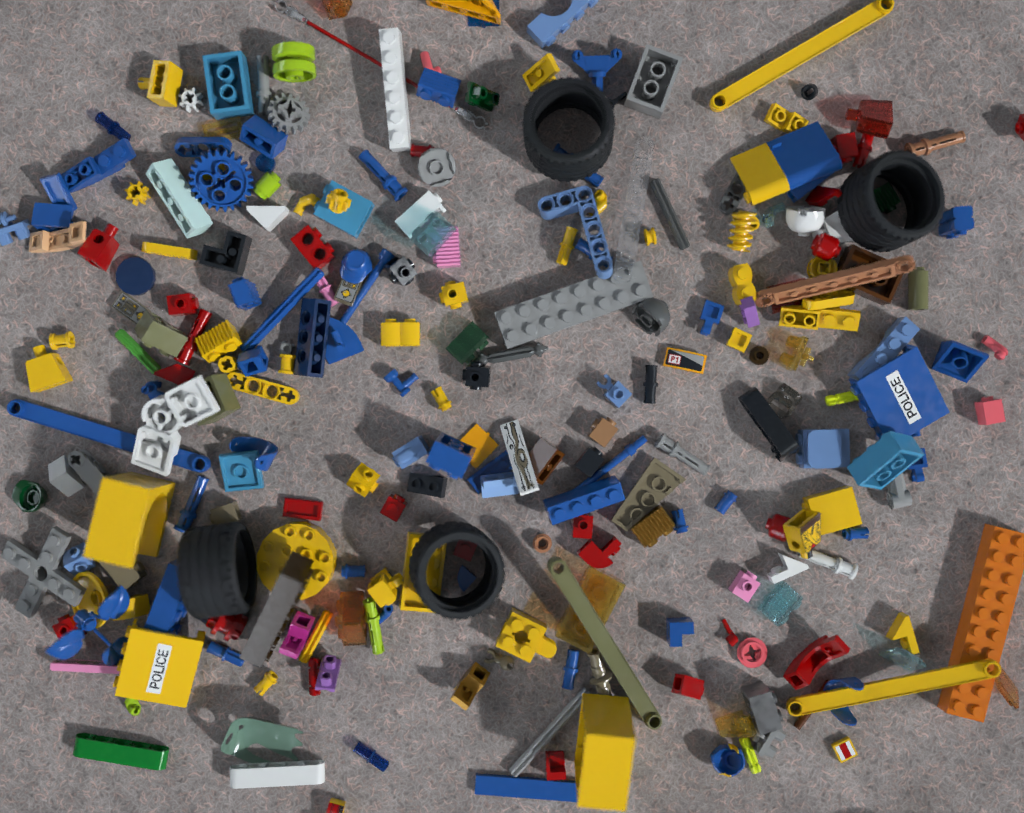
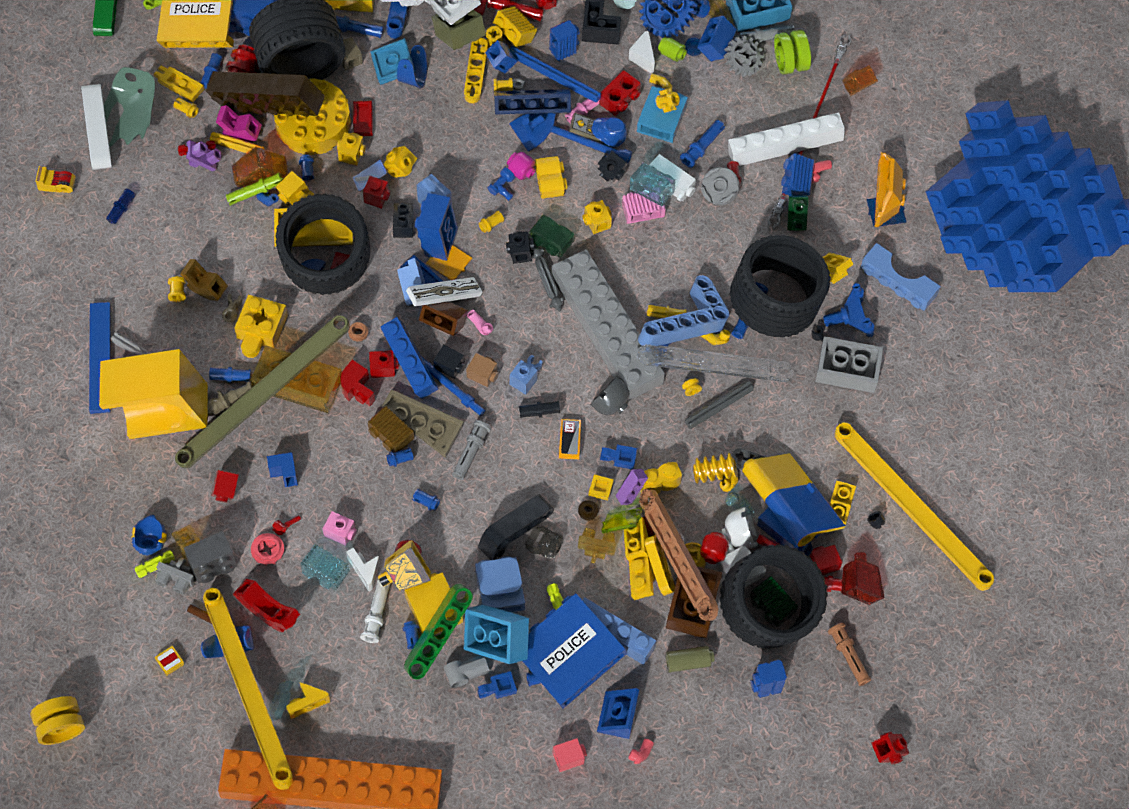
camera: 75 degrees right, 25 degrees down
(236, 686) = (179, 83): none -> yellow hinge
(347, 526) = (350, 148): none -> yellow brick
(371, 510) = (375, 170): none -> sticker
(384, 360) = (521, 165): none -> dark pink head
(473, 711) = (176, 289): none -> yellow bush
(551, 425) = (482, 326): none -> bright pink arm
(781, 326) = (621, 520): none -> clear neon green piece
(868, 511) = (437, 642): none -> green beam

